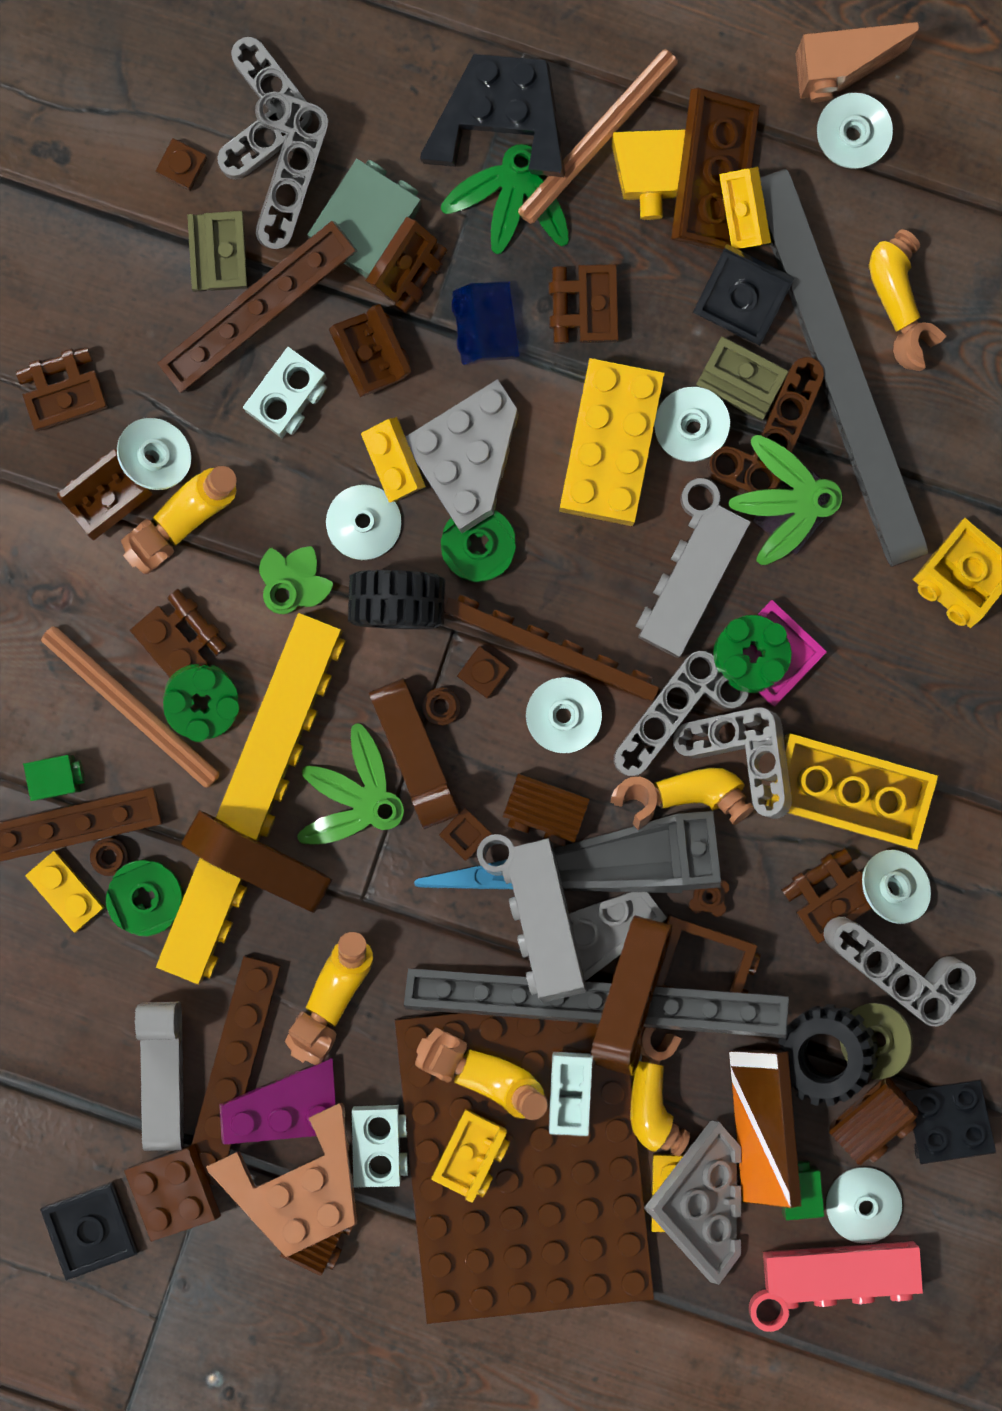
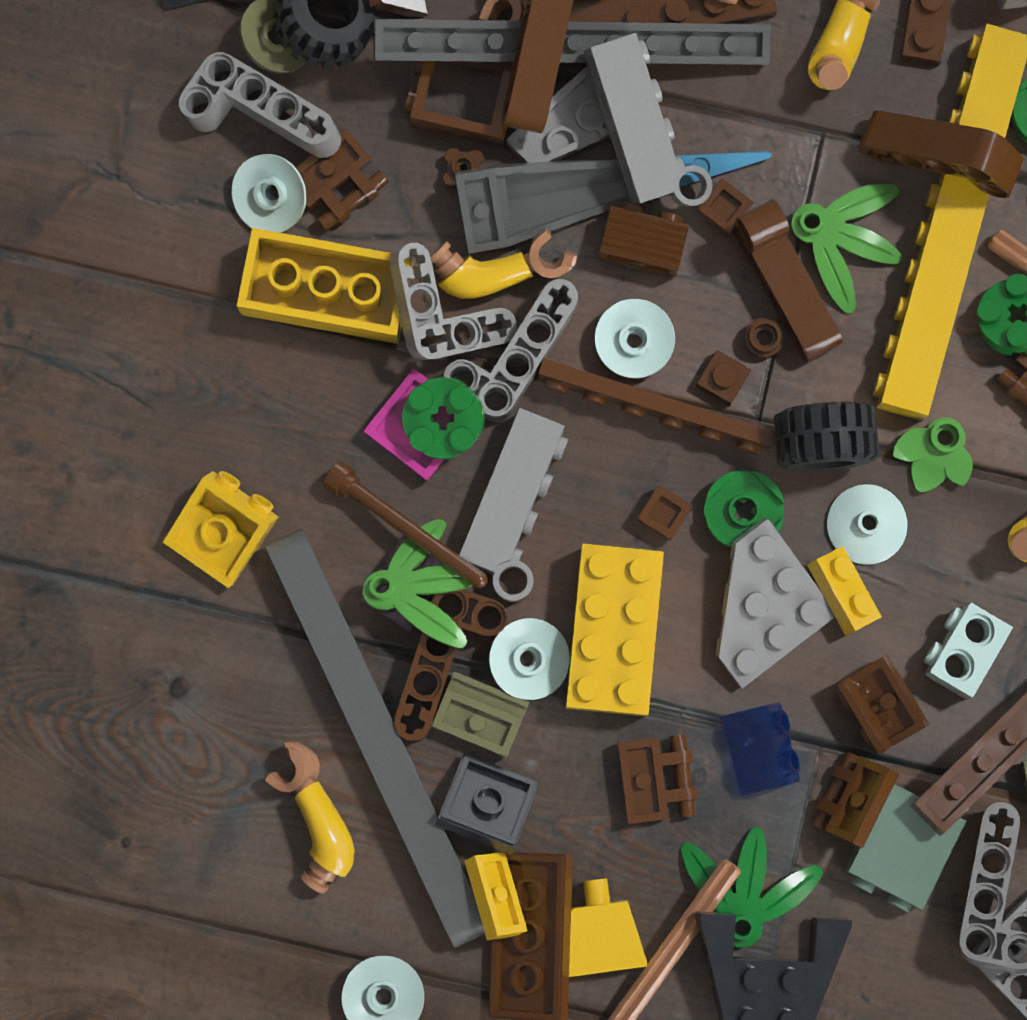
camera: 170 degrees right, 5 degrees down
(552, 549) = (664, 512): none -> reddish brown plate
(849, 606) = (344, 482): none -> reddish brown piece

